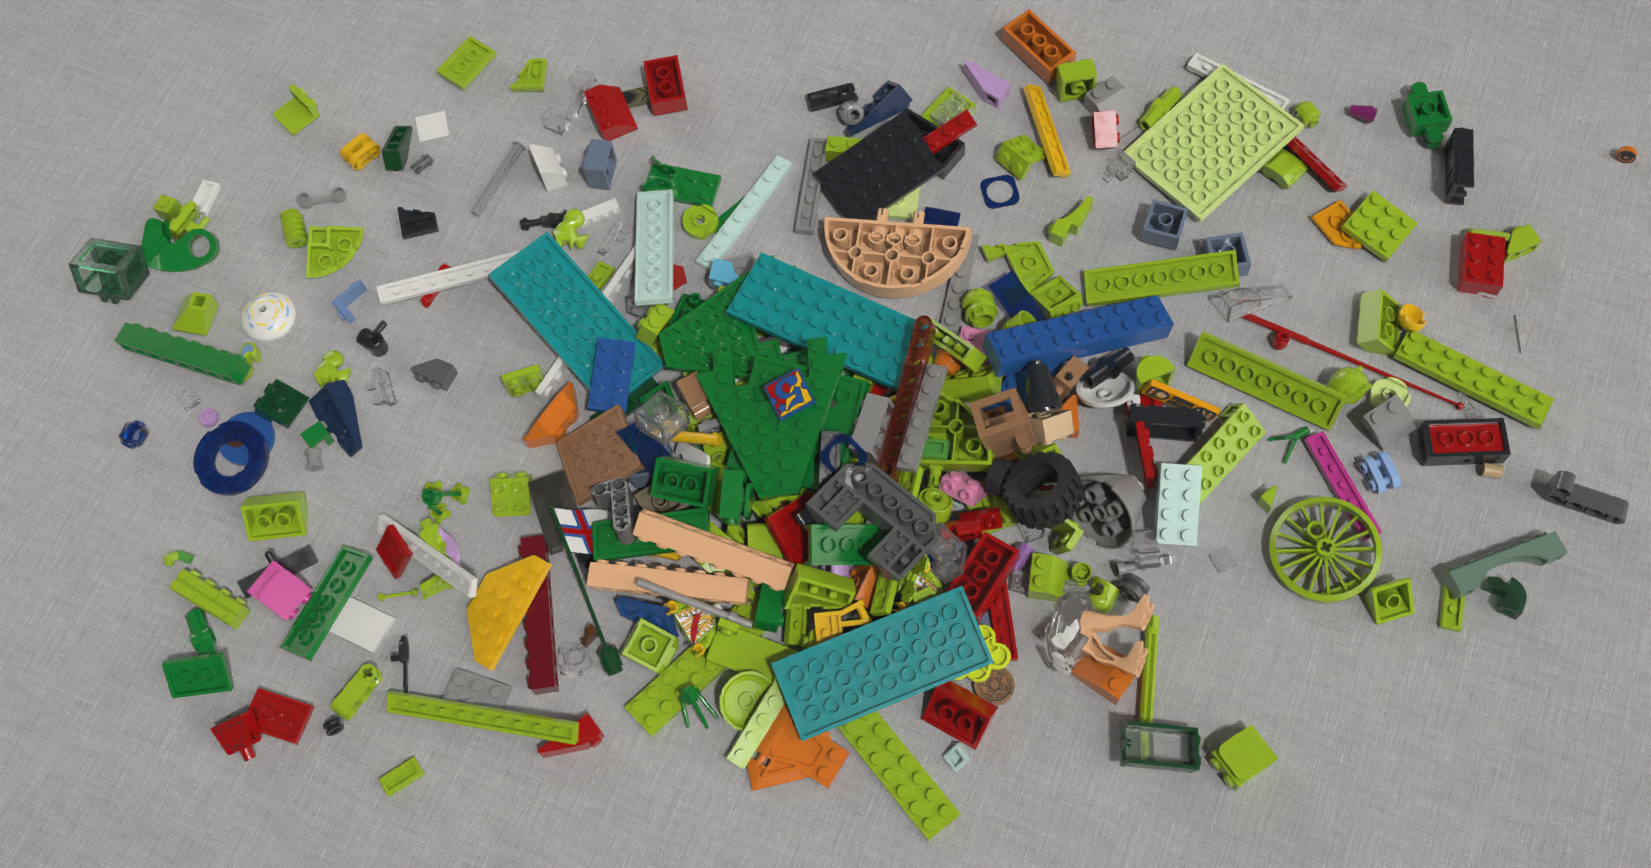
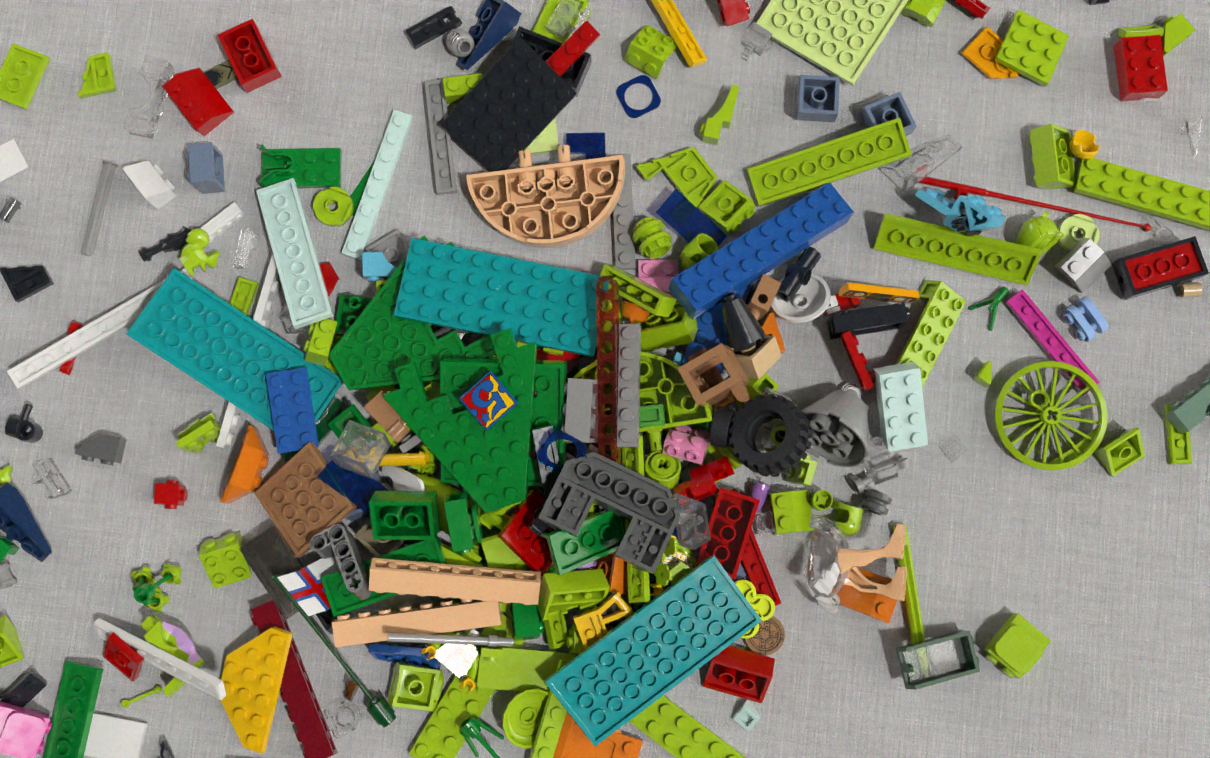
camera: 20 degrees left, 15 degrees up
(481, 425) = (170, 494): none -> red brick
(1154, 368) = (843, 270): lime brick -> none
(1281, 346) = (965, 214): none -> medium azure piece

